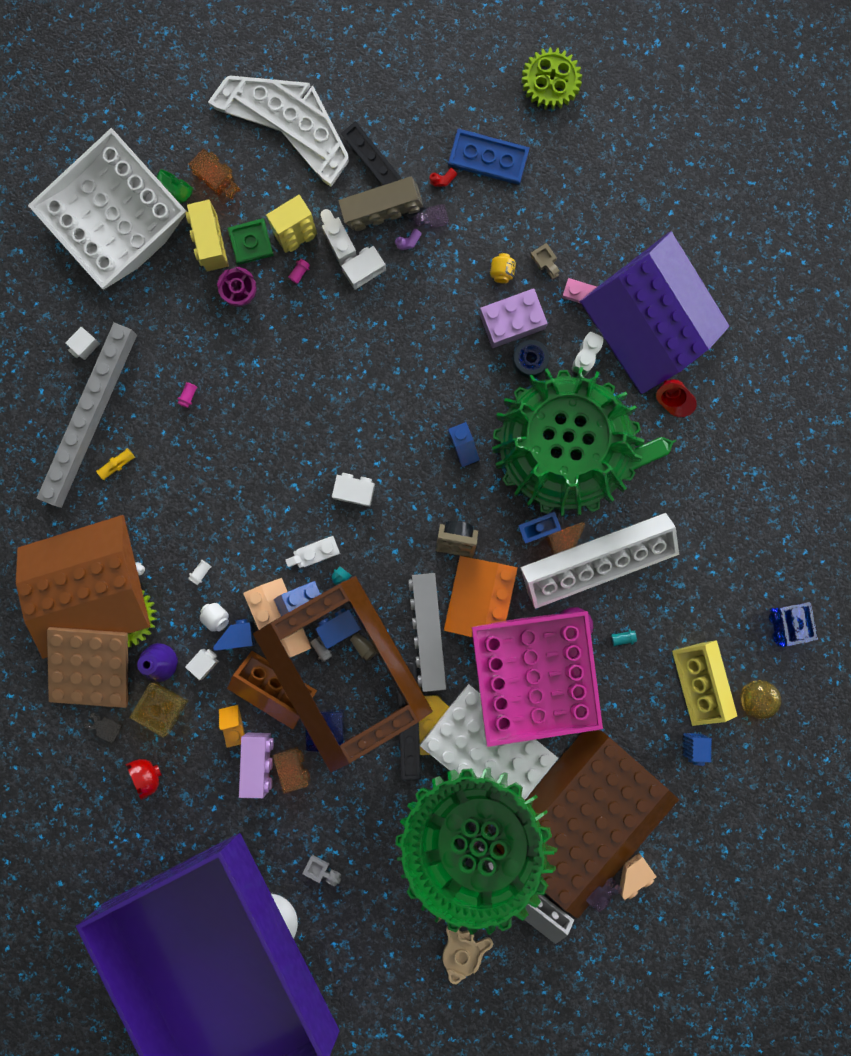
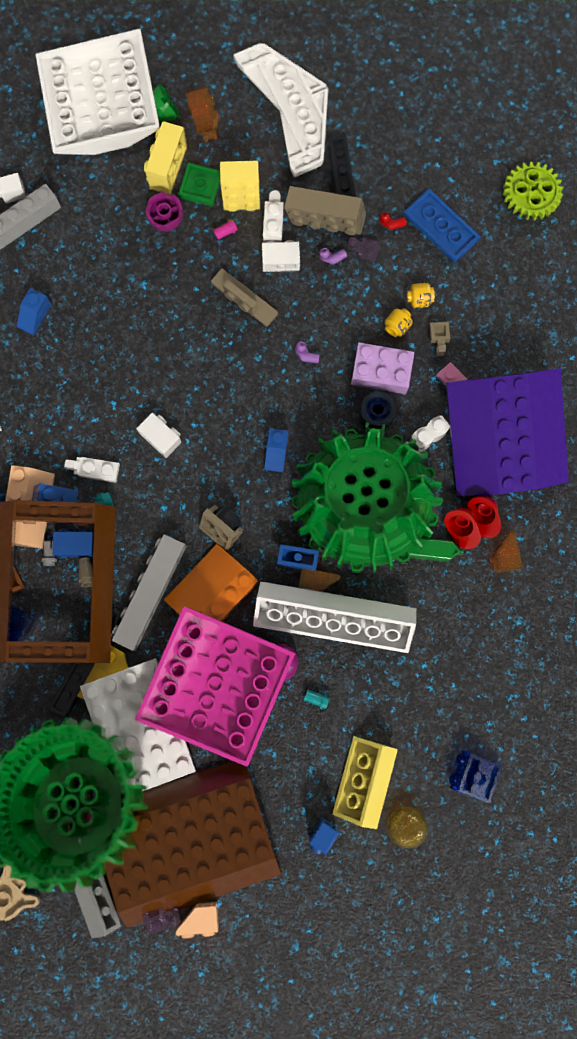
camera: 30 degrees right, 5 degrees down
(173, 445) = (32, 311): none -> blue slope
(187, 395) = (70, 278): dark pink pin -> none
(353, 323) = (244, 297): none -> dark tan bracket
(437, 345) = (304, 354): none -> medium lavender arm
(508, 232) = (420, 295): none -> yellow head
(663, 419) = (463, 528): none -> red piece
(713, 420) = (507, 555): none -> clear orange slope

